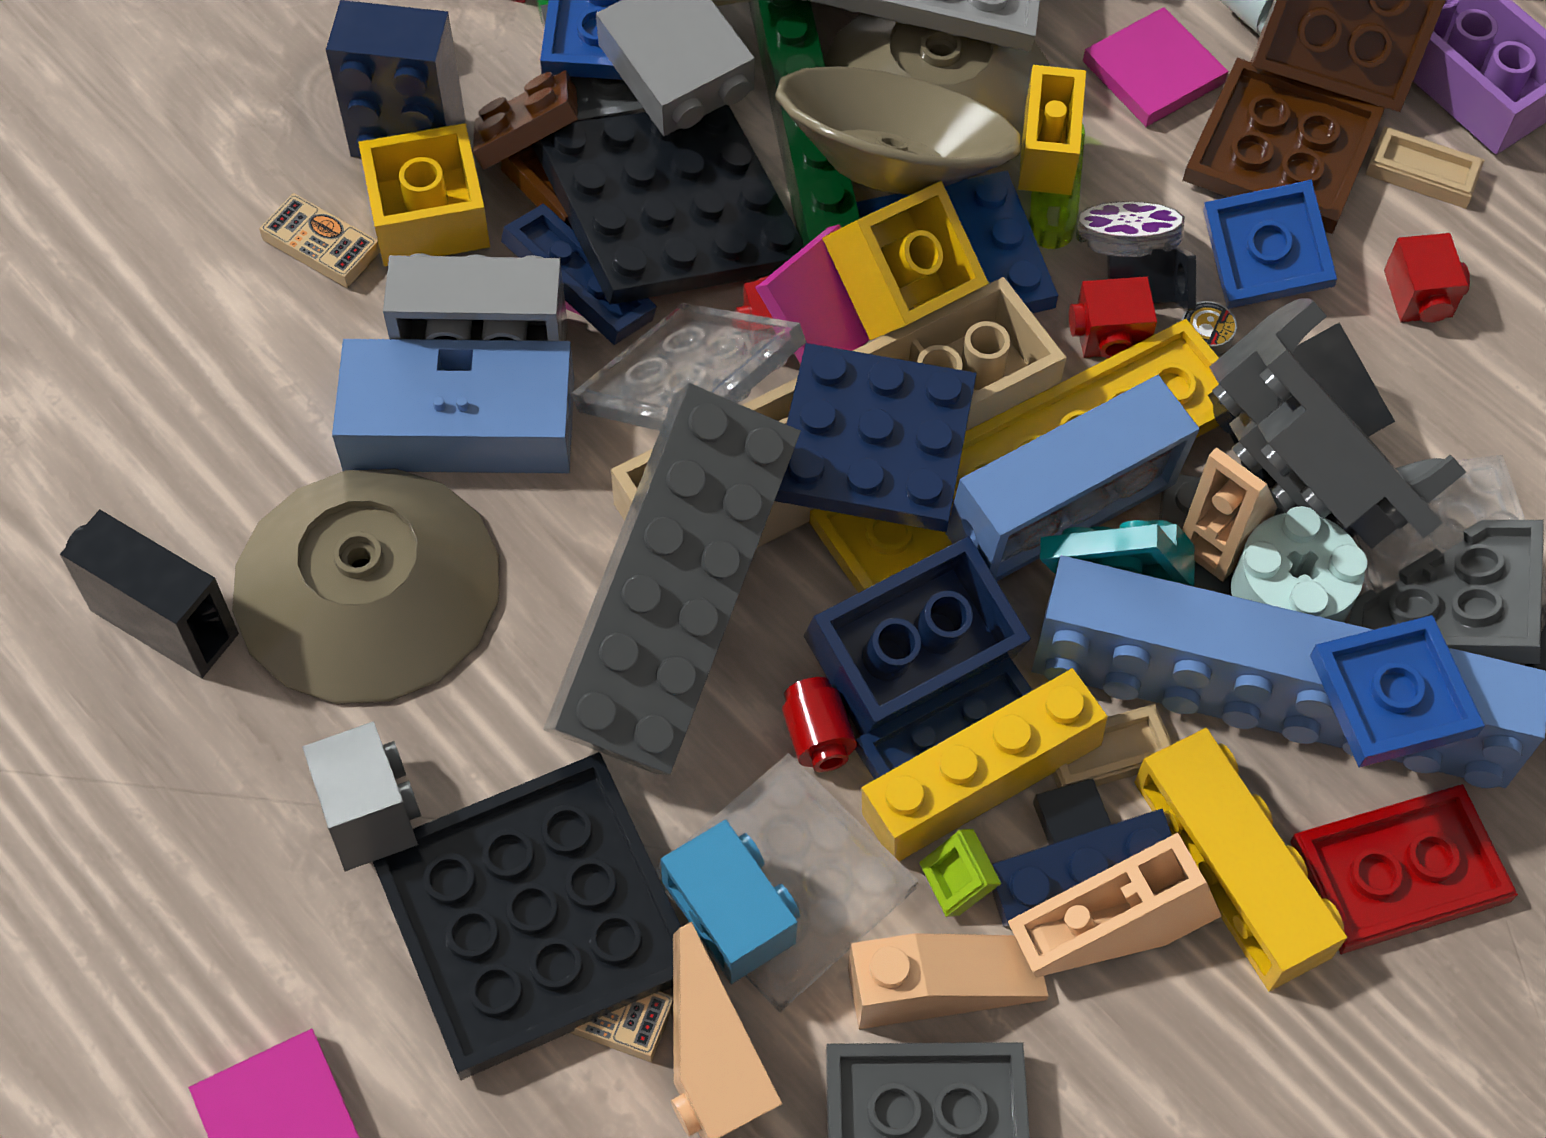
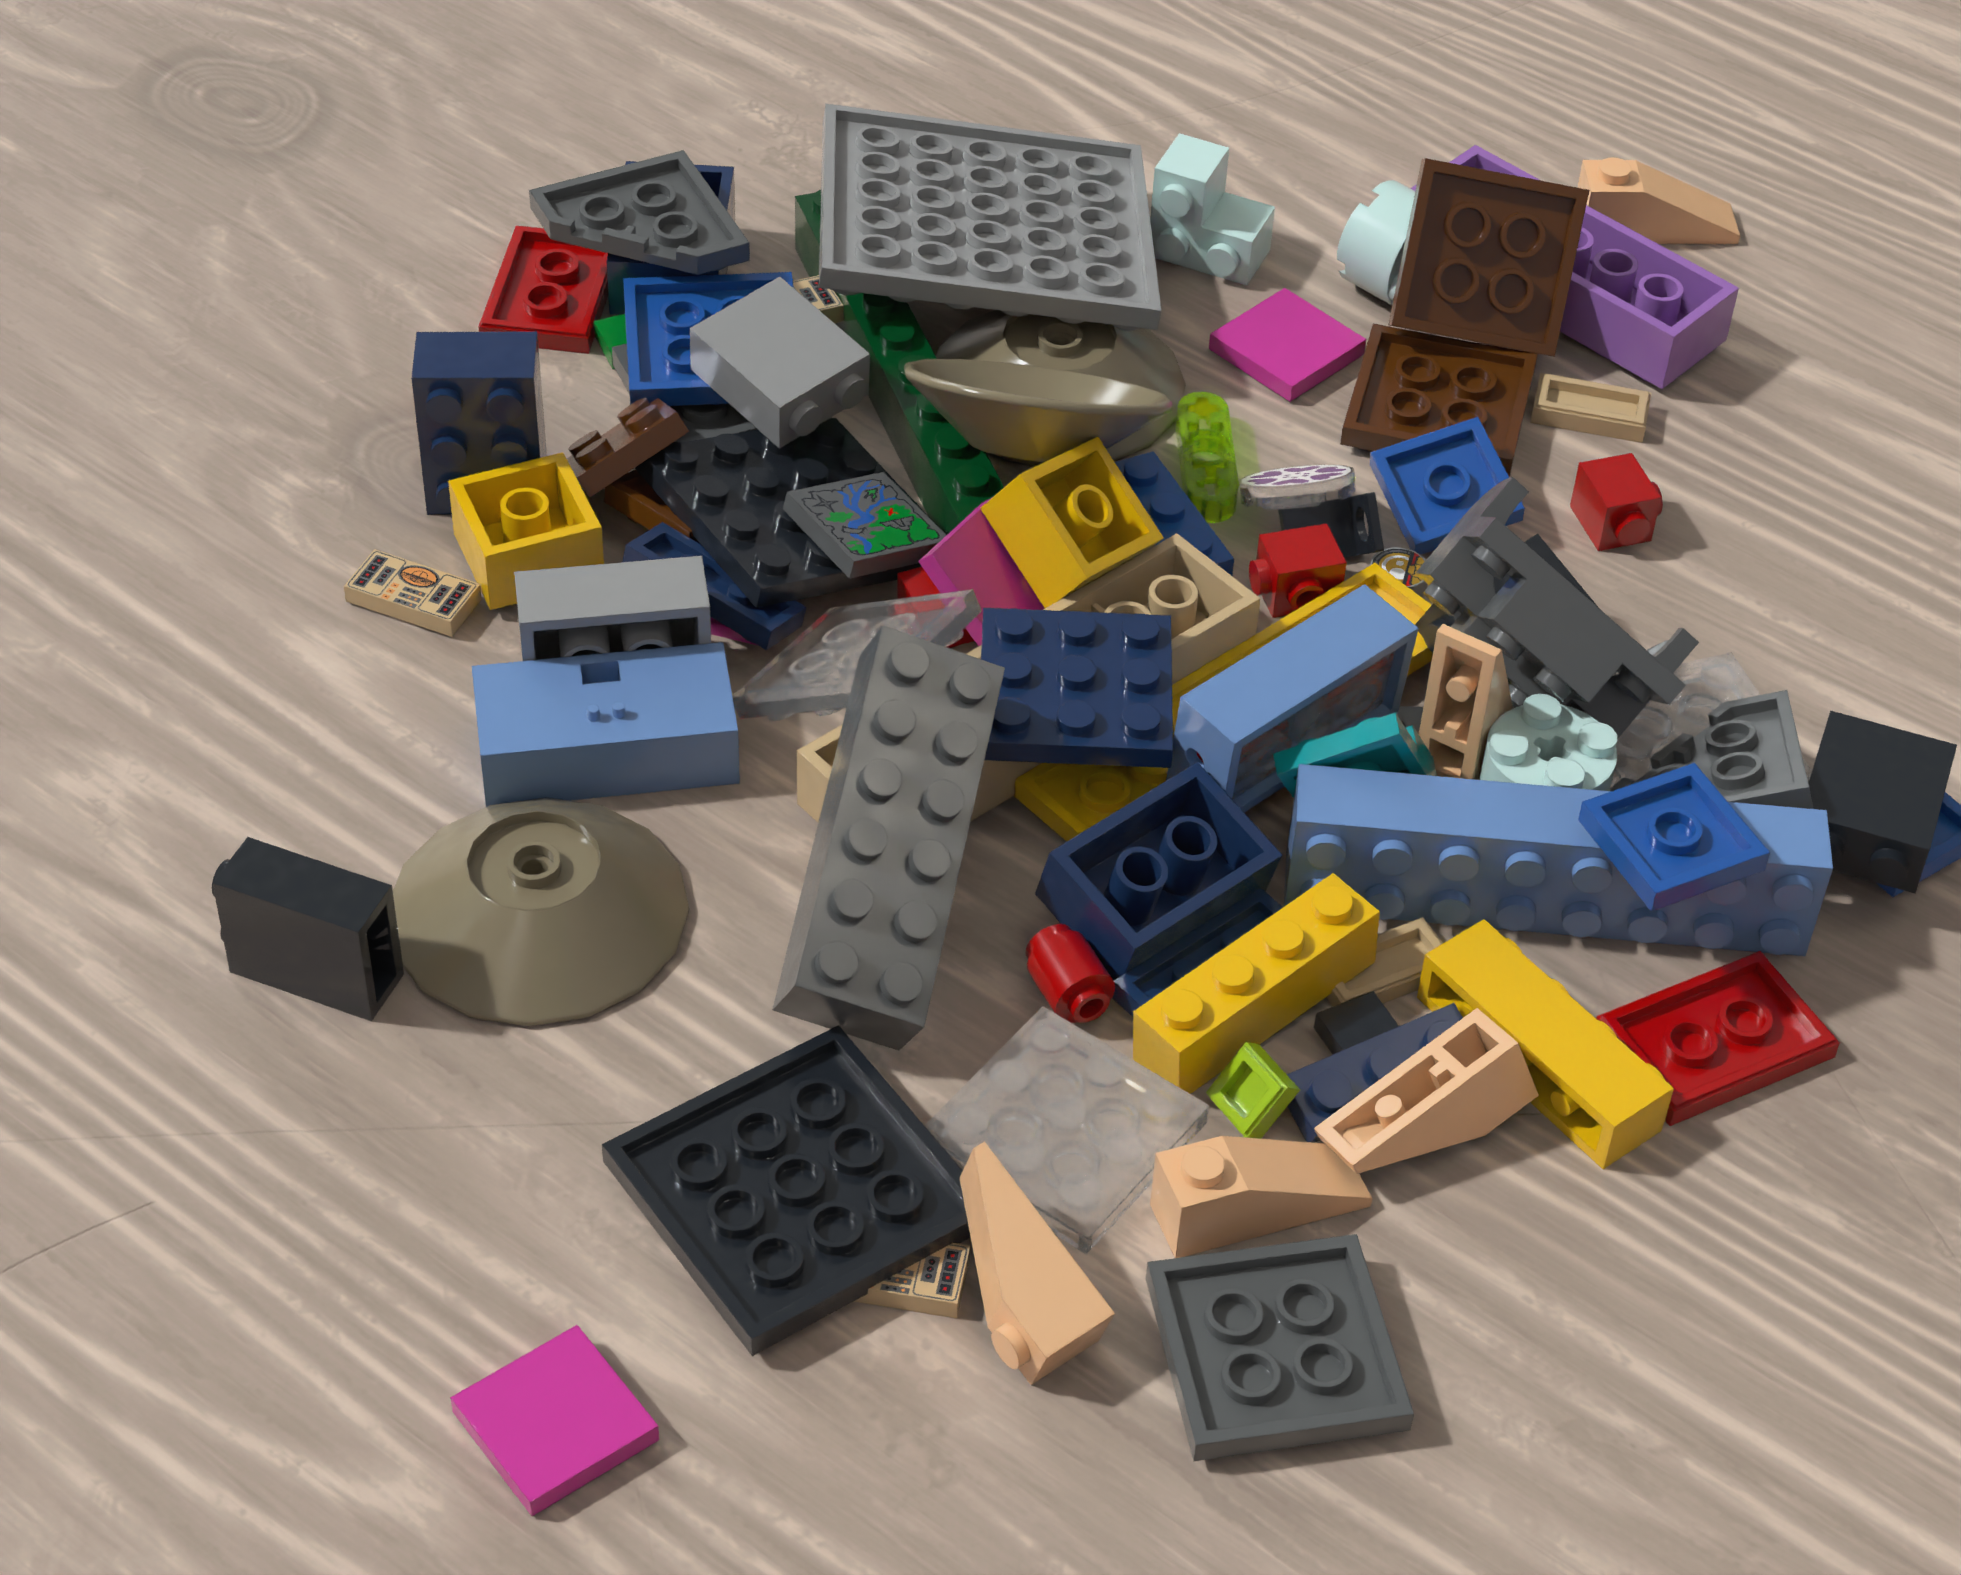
camera: 10 degrees left, 15 degrees down
(360, 795) = (587, 1091): brick -> none
(723, 230) = (864, 524): none -> dark grey tile
(731, 900) = (1024, 1124): dark azure brick -> none
(1052, 130) = (1201, 396): yellow brick -> none

